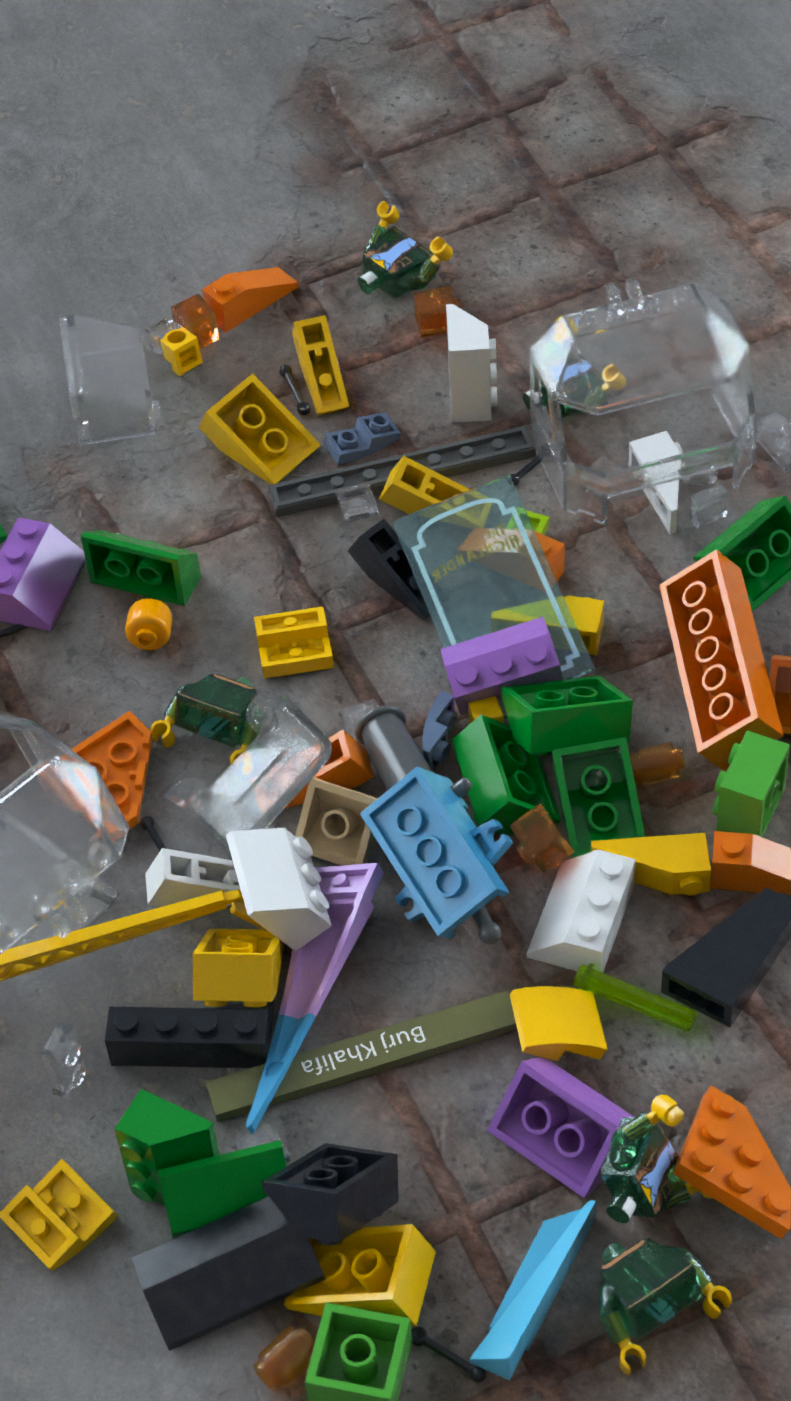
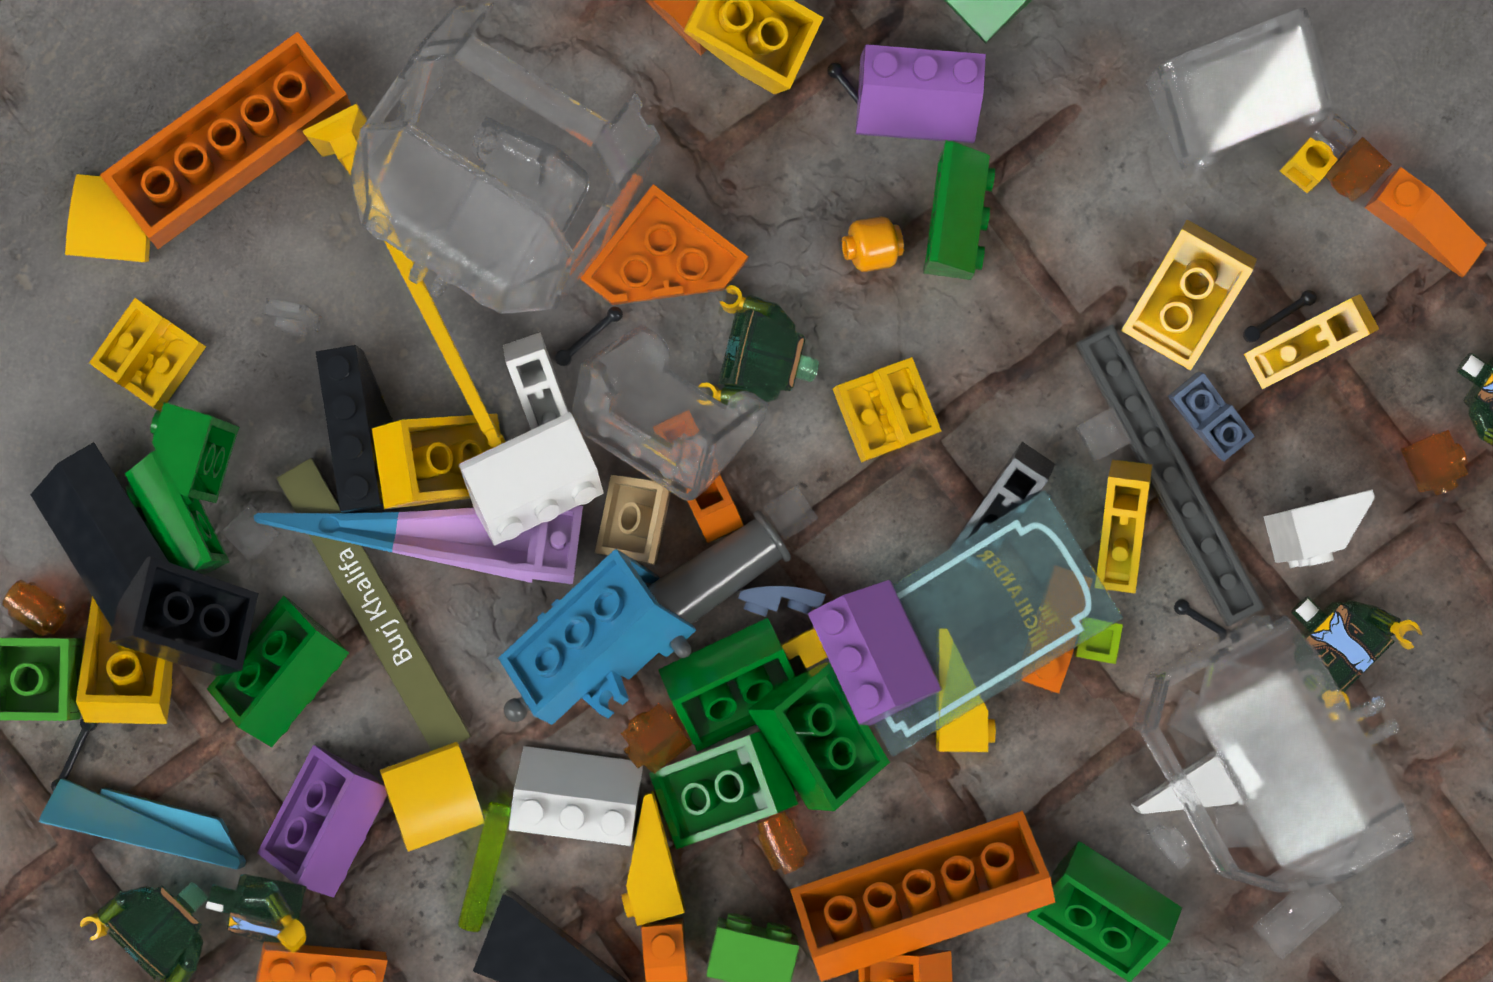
camera: 75 degrees right, 35 degrees up
(403, 1120) = (281, 672): none -> green slope

